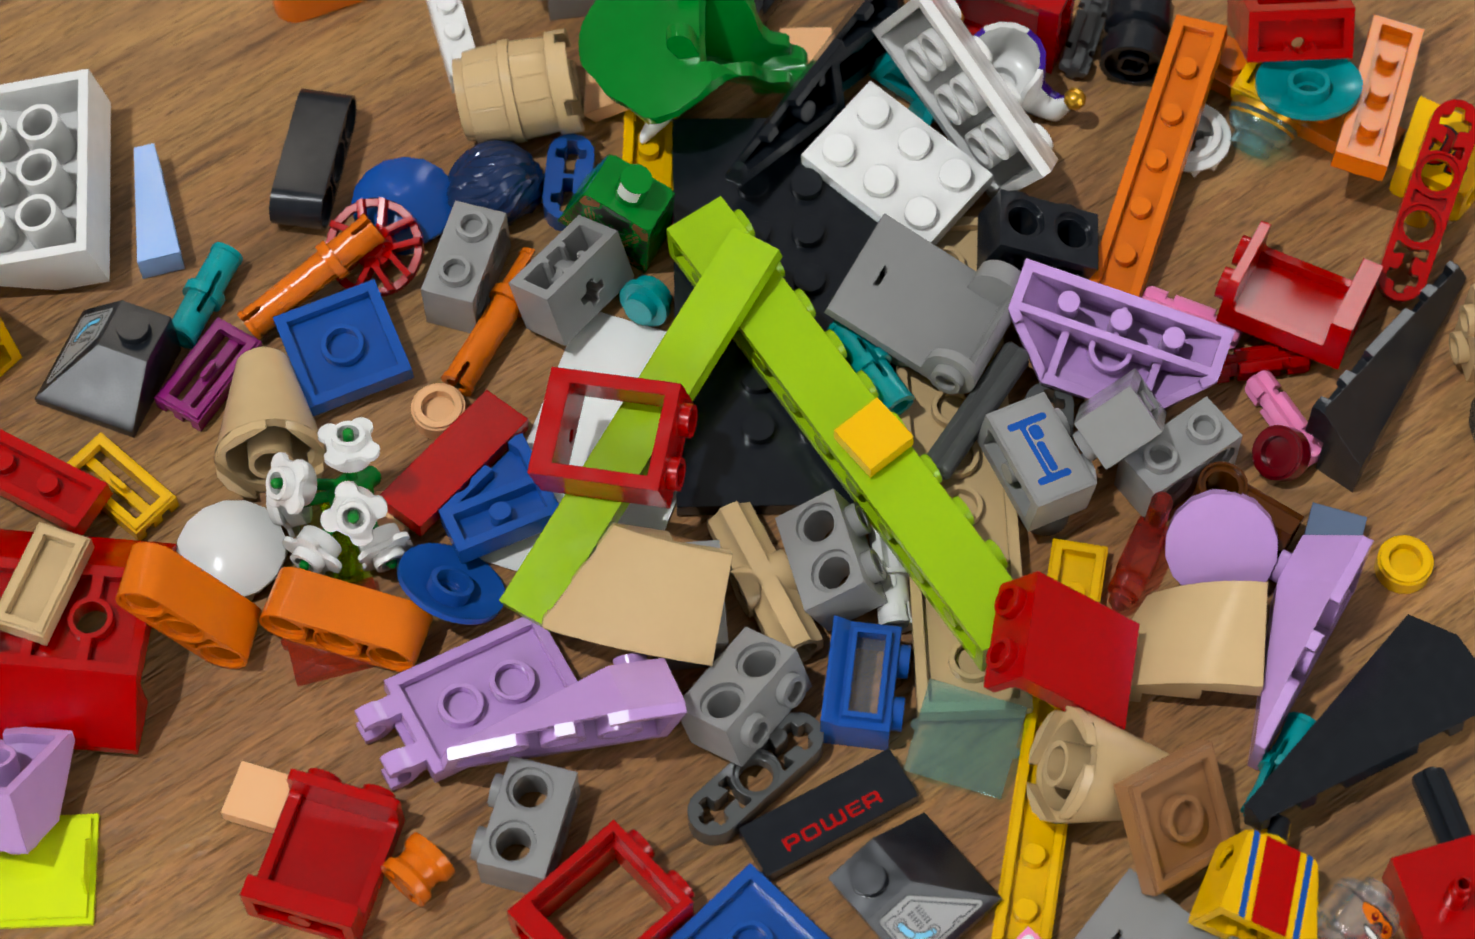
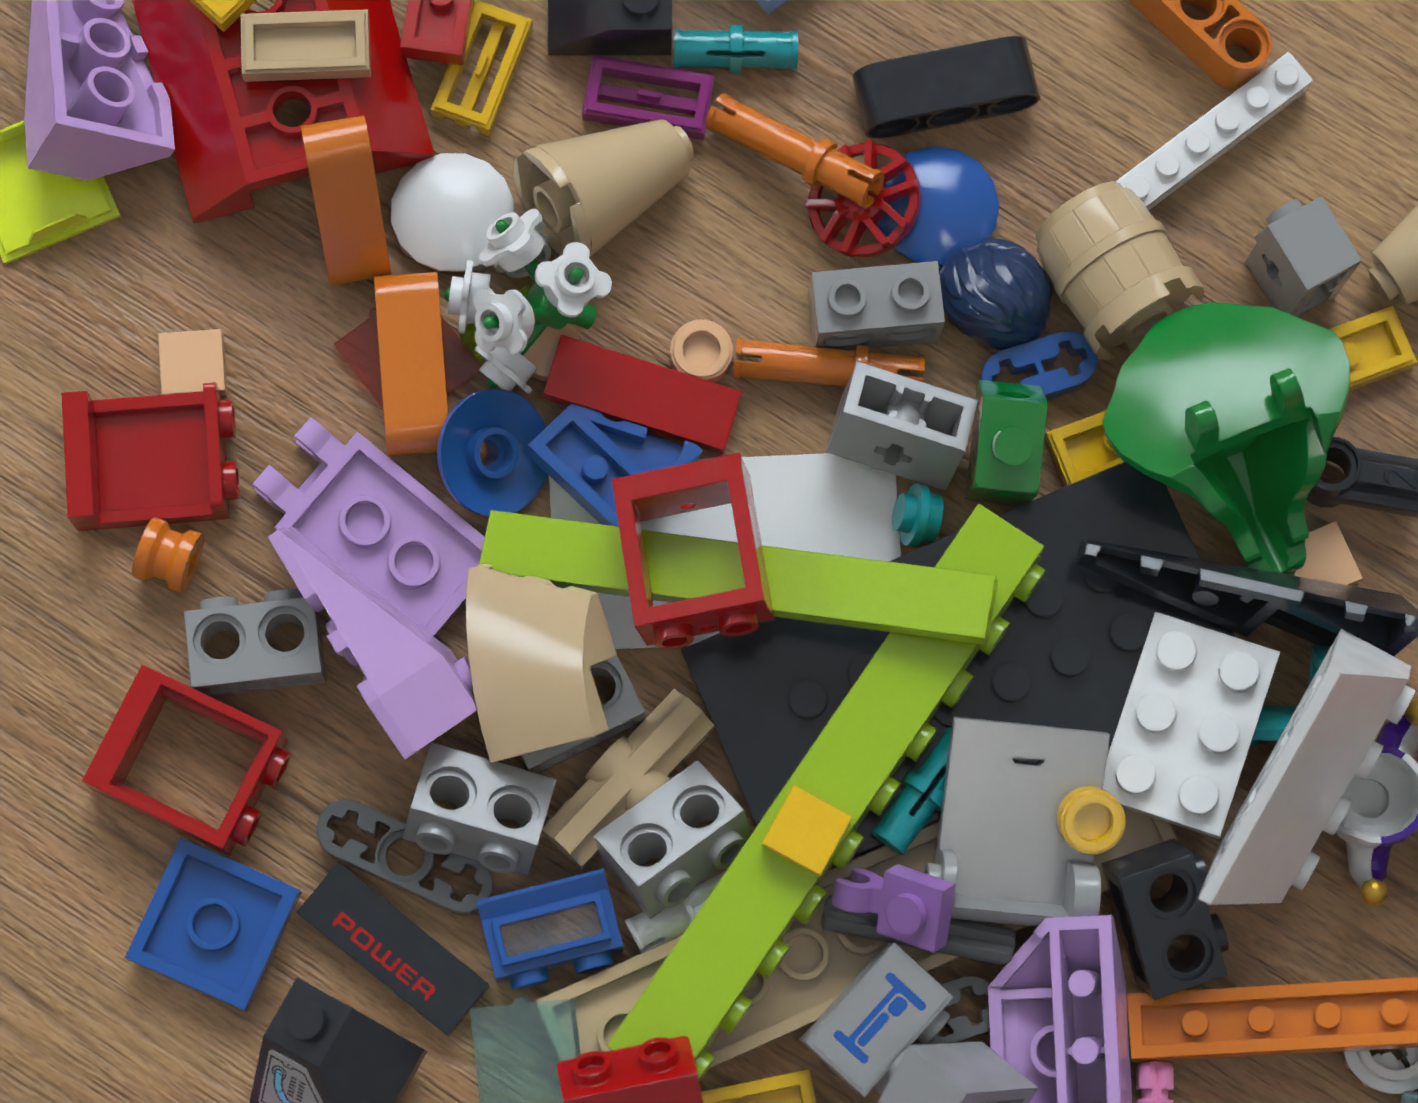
camera: 60 degrees right, 15 degrees up
(343, 347) = (729, 221): blue plate -> none
(944, 253) = (1091, 820): none -> yellow tile
(960, 394) = (908, 902): none -> medium lavender plate

